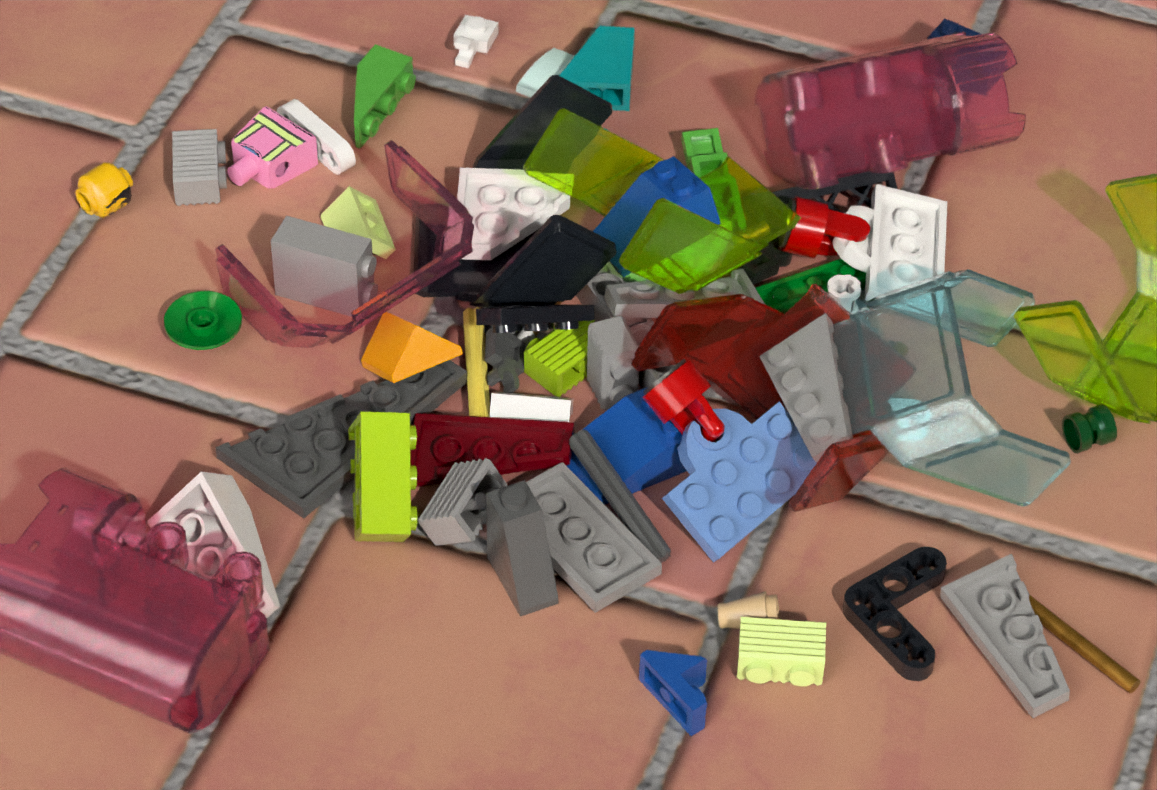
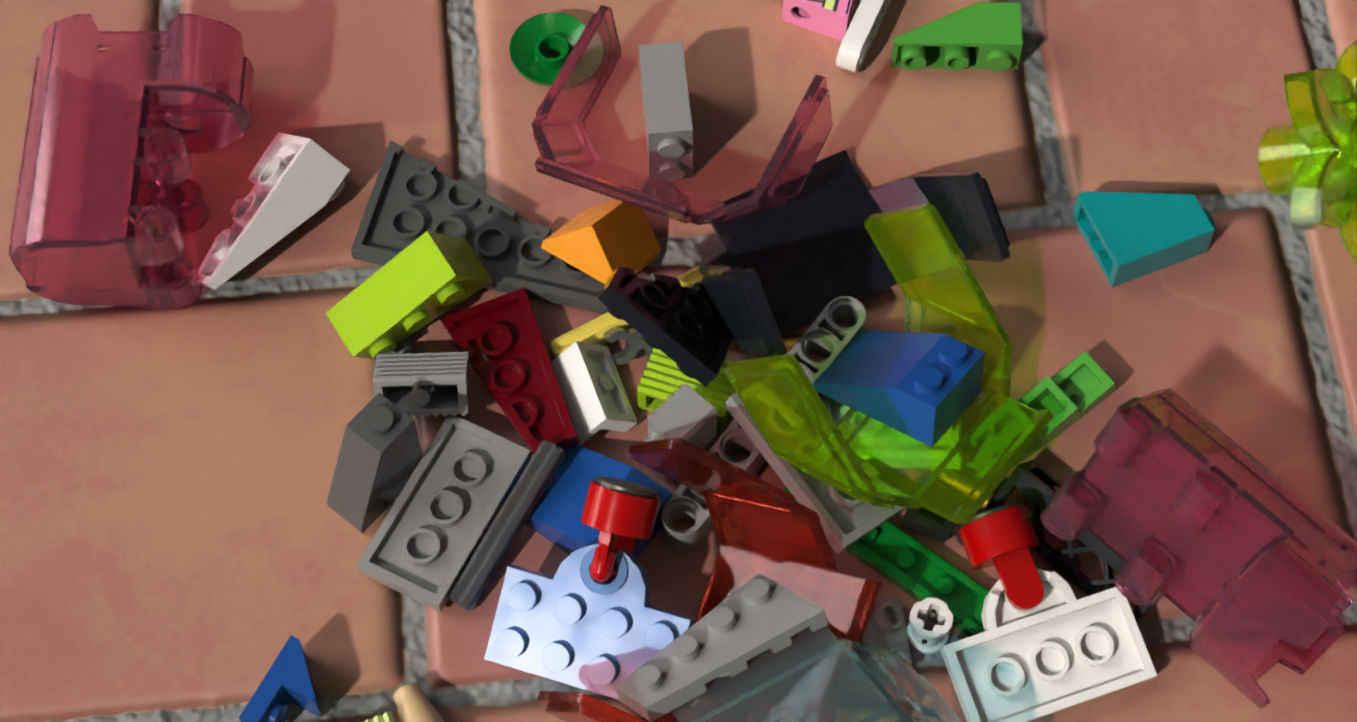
camera: 65 degrees right, 15 degrees up
(360, 216) = (760, 119): yellowish green panel -> none
(472, 36) = (1120, 87): white plate -> none
(505, 207) = (830, 227): white plate -> none
(549, 64) = (1099, 176): light aqua slope -> none

